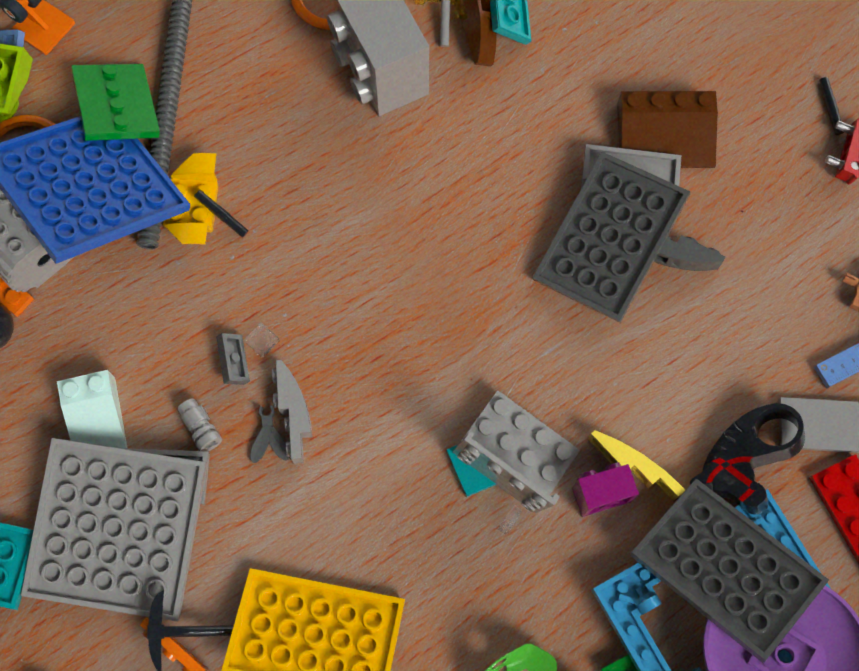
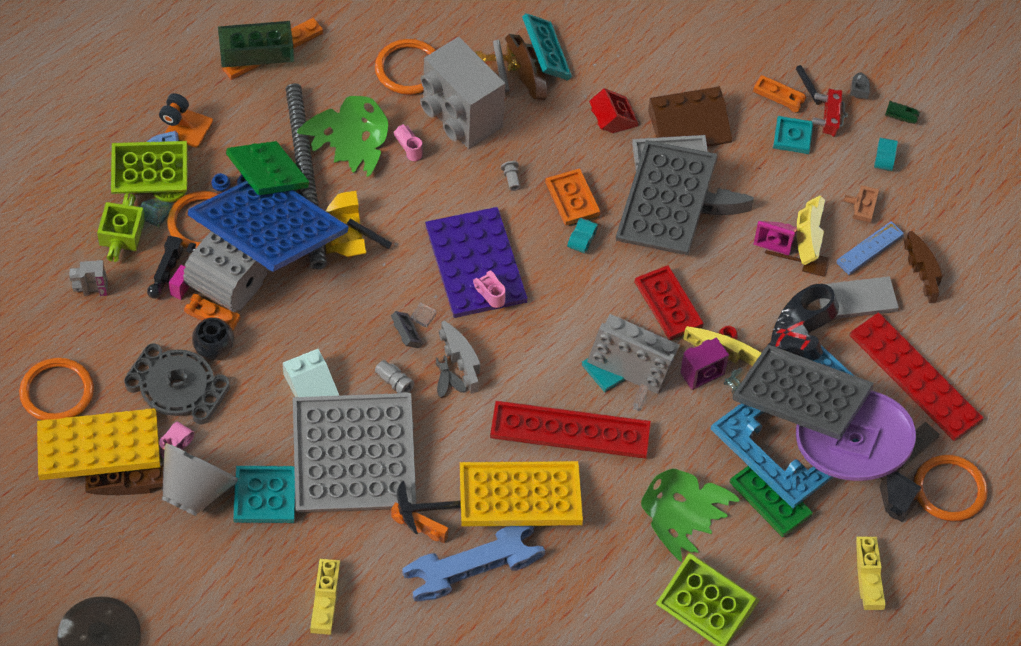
camera: 15 degrees left, 15 degrees down
(58, 102) = (220, 178): none -> blue plate
(234, 68) = (348, 132): none -> bright green piece
(304, 96) = (409, 142): none -> bright pink piece
(346, 278) = (467, 249): none -> dark purple plate
(350, 322) = (490, 286): none -> bright pink piece
(407, 548) = (570, 429): none -> red plate
(421, 163) = (511, 171): none -> light grey pin
(491, 209) = (572, 196): none -> orange plate
(491, 267) = (582, 235): none -> teal axle
(571, 99) = (613, 111): none -> red slope
(580, 385) = (668, 302): none -> red plate
(640, 511) = (733, 377): none -> clear light blue piece
(652, 442) = (729, 330): none -> red plate
(743, 317) = (775, 236): none -> dark pink slope
(783, 362) = (817, 267): none -> reddish brown piece
(787, 318) = (808, 230): none -> light yellow slope
(791, 111) = (779, 93): none -> orange plate
(796, 172) = (793, 135): none -> teal tile

